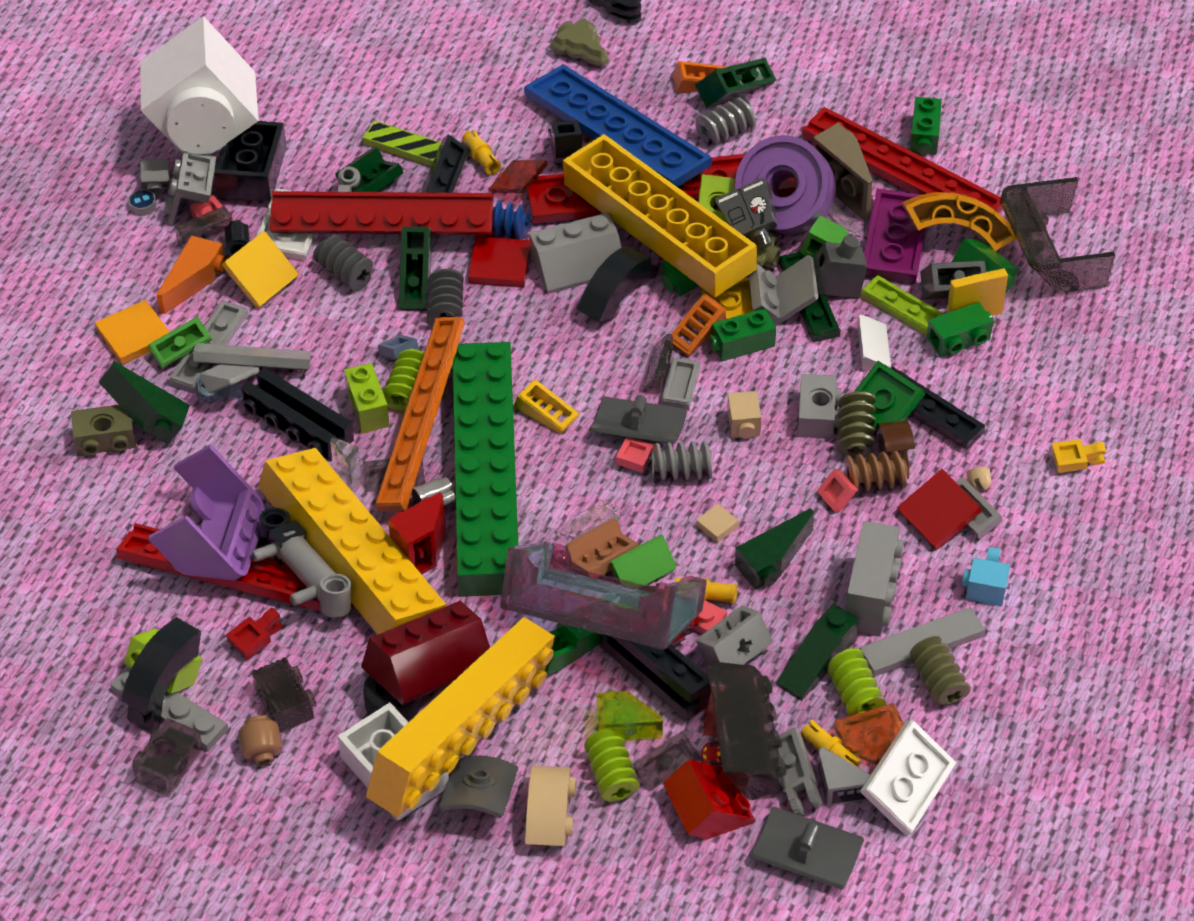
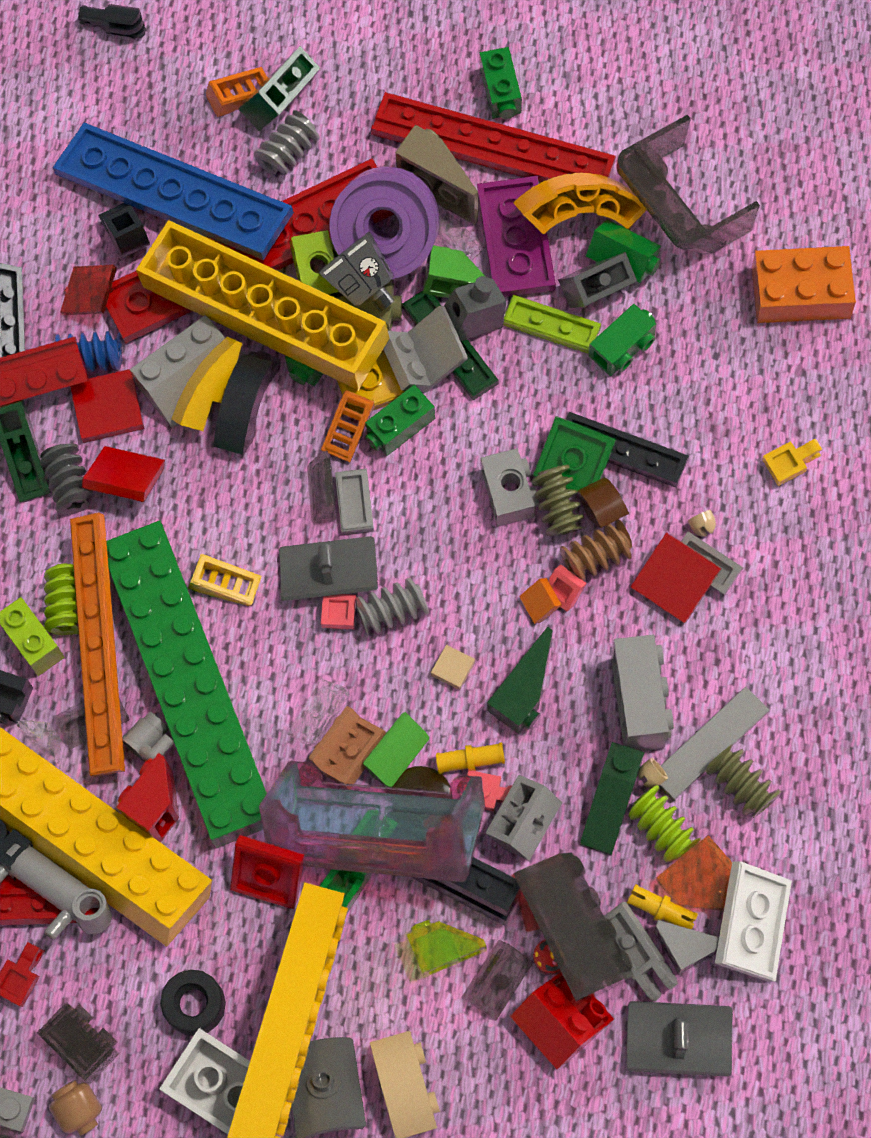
camera: 15 degrees left, 20 degrees up
(393, 346) = (39, 557): sand blue plate -> none
(426, 652) = (217, 950): dark red slope -> none
(481, 152) = (36, 267): yellow pin -> none
(493, 307) = (123, 473): none -> red tile
(496, 606) = (266, 872): none -> red tile
(580, 42) = (92, 86): olive rock -> none
(587, 263) = (207, 385): none -> yellow slope
(611, 765) = (450, 1014): lime piece -> none
(744, 414) = (436, 524): tan brick -> none
(813, 493) = (540, 600): none -> orange tile
(860, 640) = (653, 772): none -> tan hinge
(872, 342) = (538, 385): white slope -> none
(986, 288) = (637, 290): yellow tile -> none
(987, 579) = (752, 647): medium azure brick -> none
(1135, 331) = (803, 284): none -> orange brick

